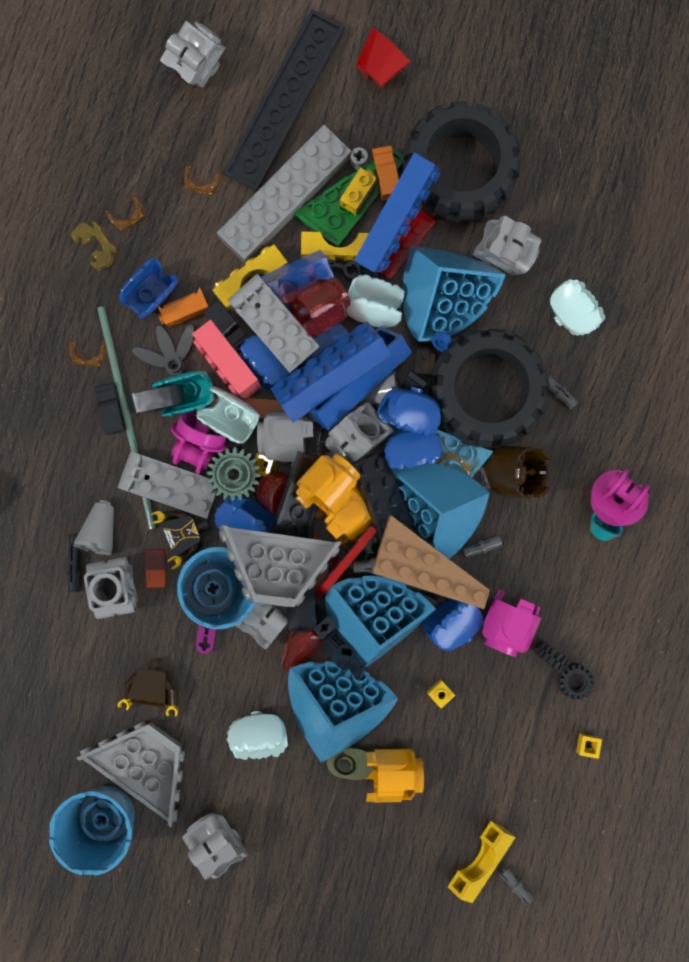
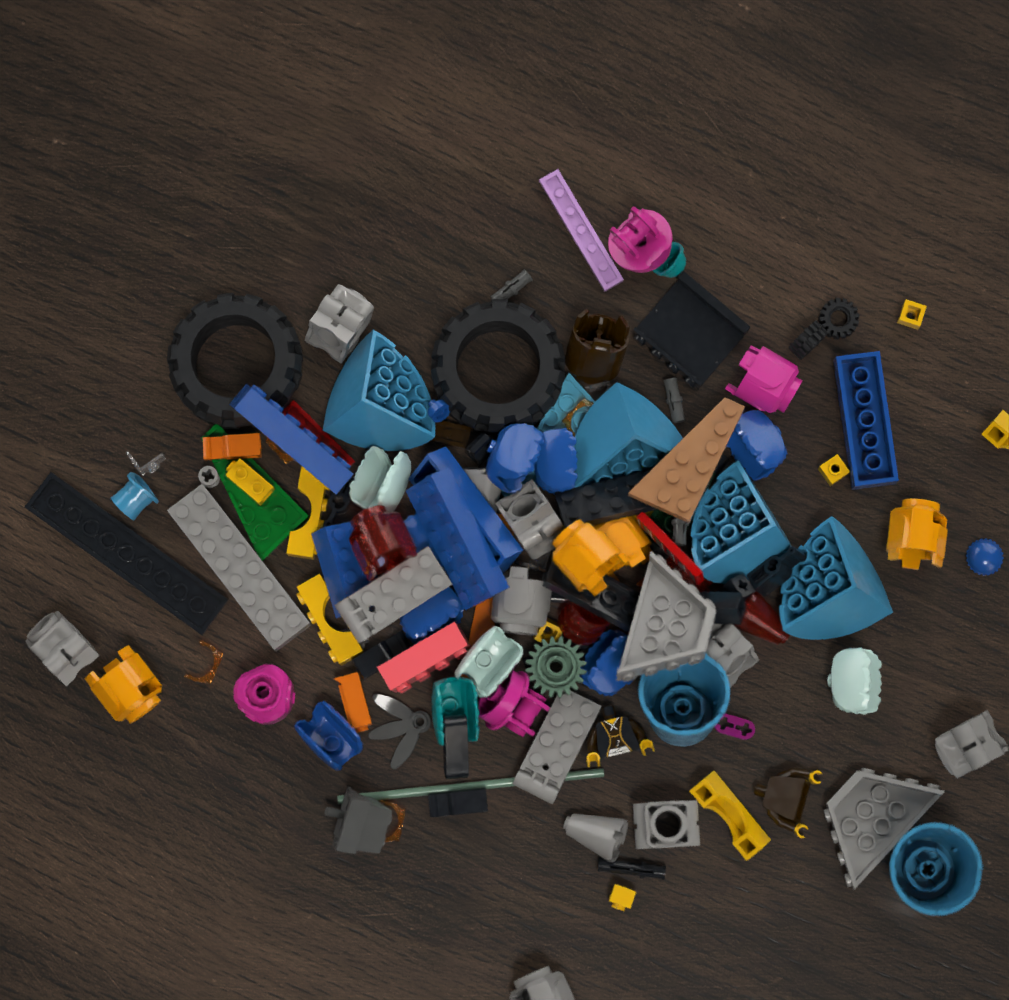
camera: 80 degrees left, 5 degrees down
(48, 557) = (621, 897): none -> yellow plate
(76, 327) = (360, 823): none -> dark grey piece
(103, 258) = (245, 807): clear yellow helmet -> none
(114, 658) = (746, 832): none -> yellow arch
(123, 224) = (243, 759): clear orange cap -> none
(155, 568) = (650, 775): clear red tile -> none
(167, 114) = (127, 687): none -> light orange piece
(186, 234) = (277, 696): none -> dark pink piece
(333, 97) = (134, 496): none -> dark azure piece
(350, 764) = (900, 580): olive piece -> none
(360, 108) = (151, 466): none -> clear bracket
(380, 59) = (96, 436): red slope -> none
(383, 835) = (984, 557): none -> blue hat
(489, 716) = (865, 420): none -> blue brick
(545, 553) = (690, 331): none -> black panel
(576, 308) = (419, 256): light aqua animal -> none
(620, 445) = (581, 230): none -> lavender plate

